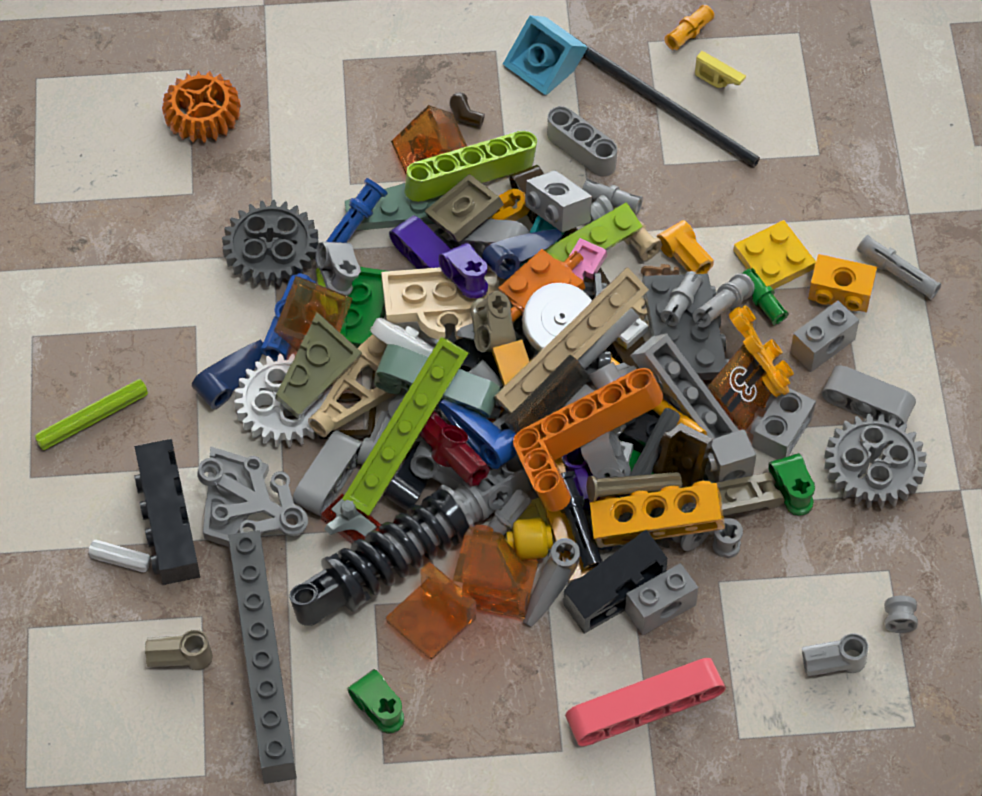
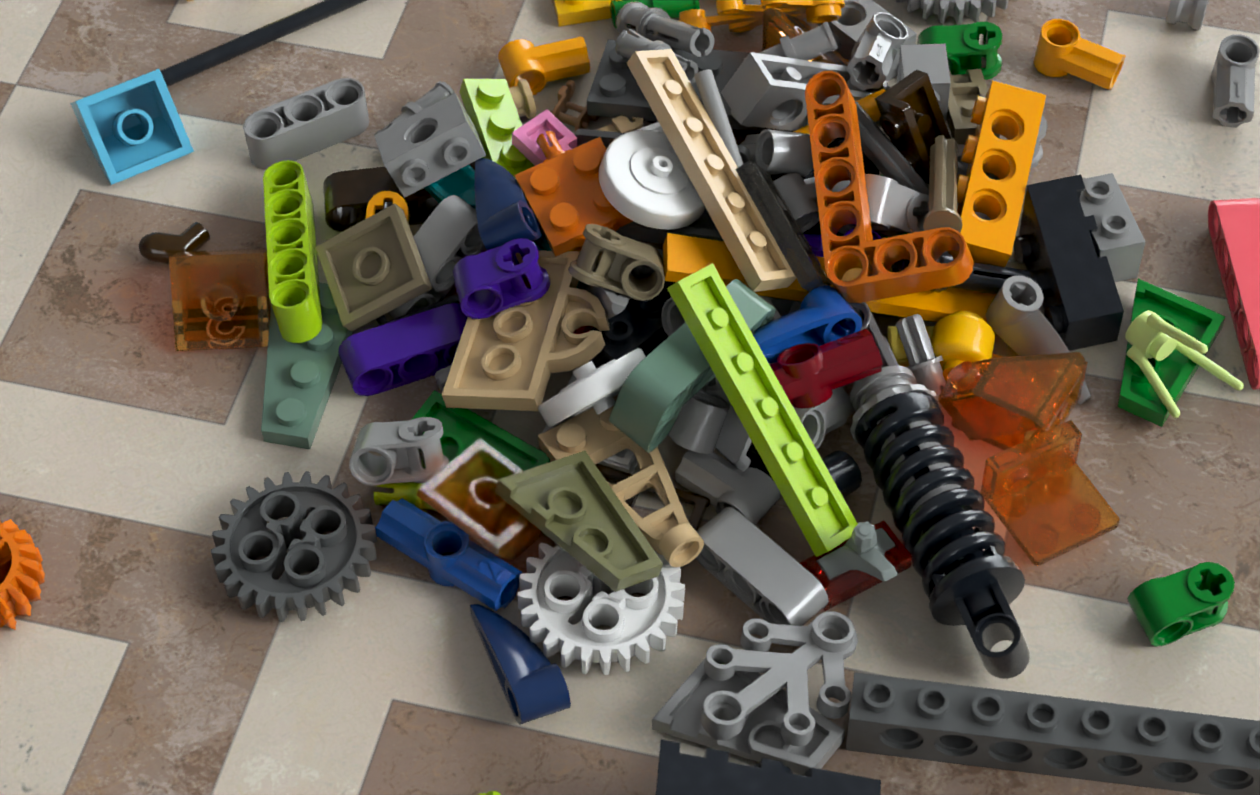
camera: 70 degrees left, 5 degrees down
(360, 208) = (304, 401): blue pin -> none
(565, 641) = (1157, 339): none -> yellowish green plant
(578, 658) = (1175, 370): none -> green wing
(707, 367) = (806, 45): none -> light grey pin
(734, 417) = (876, 51): none -> light grey piece
(820, 555) = (1064, 52): none -> light orange piece

